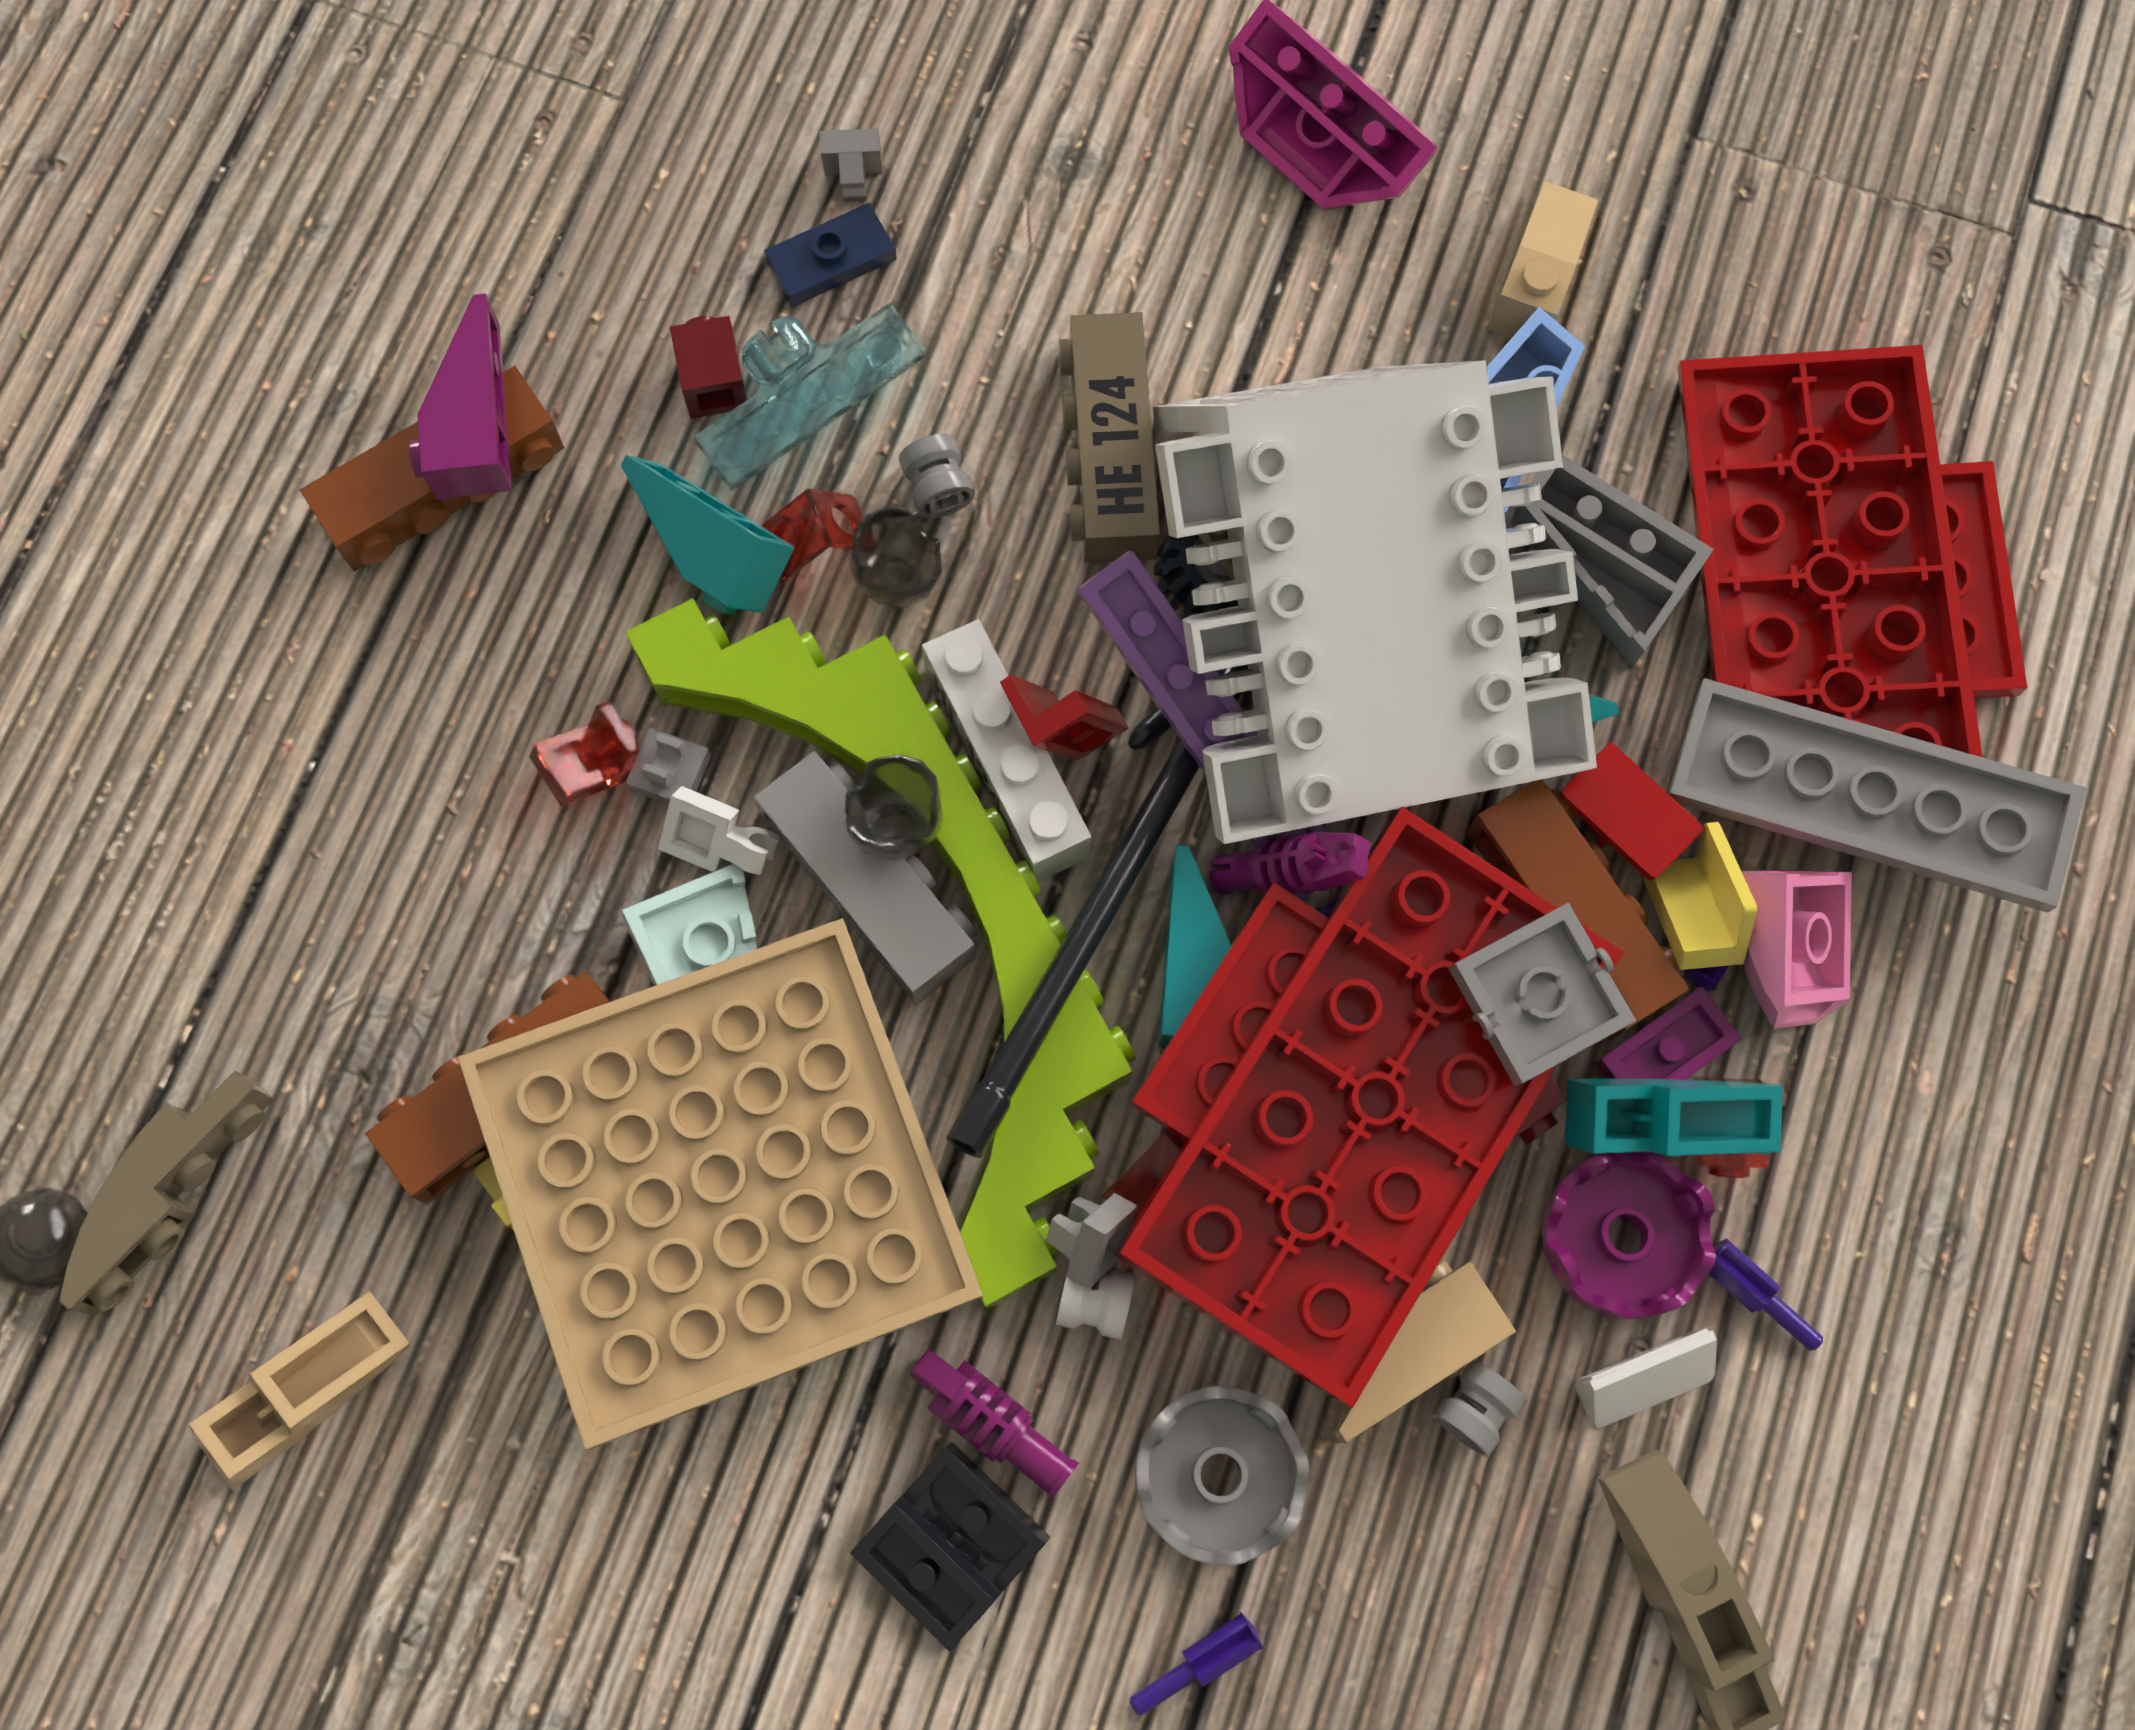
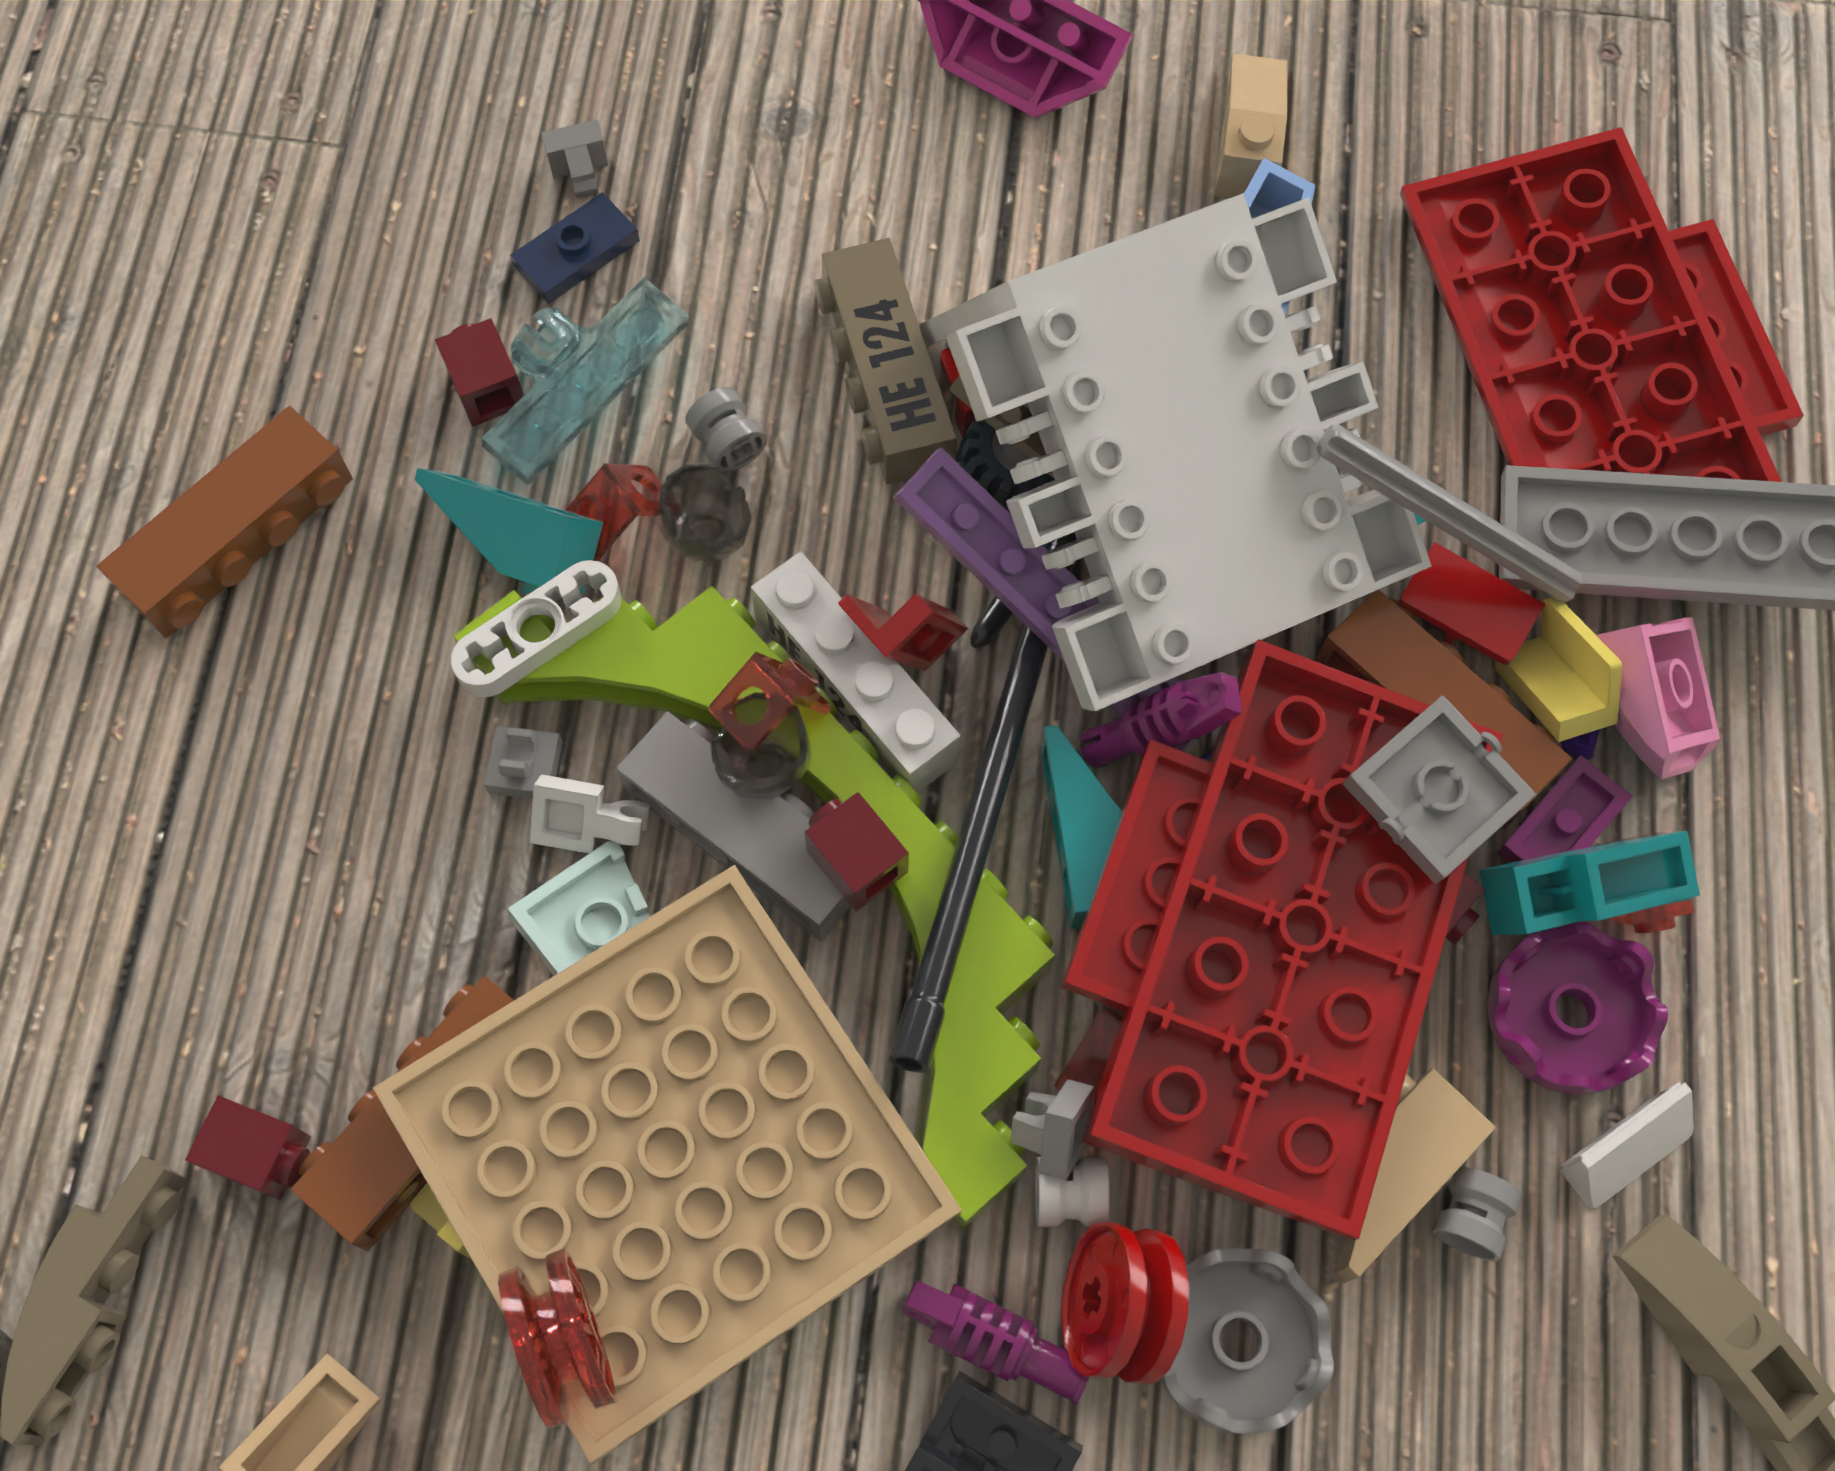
camera: 10 degrees left, 5 degrees down
(336, 1085) = (250, 1148): none -> dark red brick
(464, 413) = (249, 459): magenta slope -> none
(574, 1331) = (556, 1338): none -> clear red wheel
(587, 756) = (441, 766): clear red bracket -> none
(716, 617) = (542, 601): none -> white beam
(927, 752) = (783, 686): none -> clear red bracket
(962, 928) = (855, 849): none -> dark red brick
(1116, 1416) = (1124, 1303): none -> red wheel
(1624, 555) = (1413, 368): light grey wedge -> none
(1624, 721) = (1448, 513): none -> light grey axle
(1758, 1292) = (1713, 1038): dark purple axle -> none

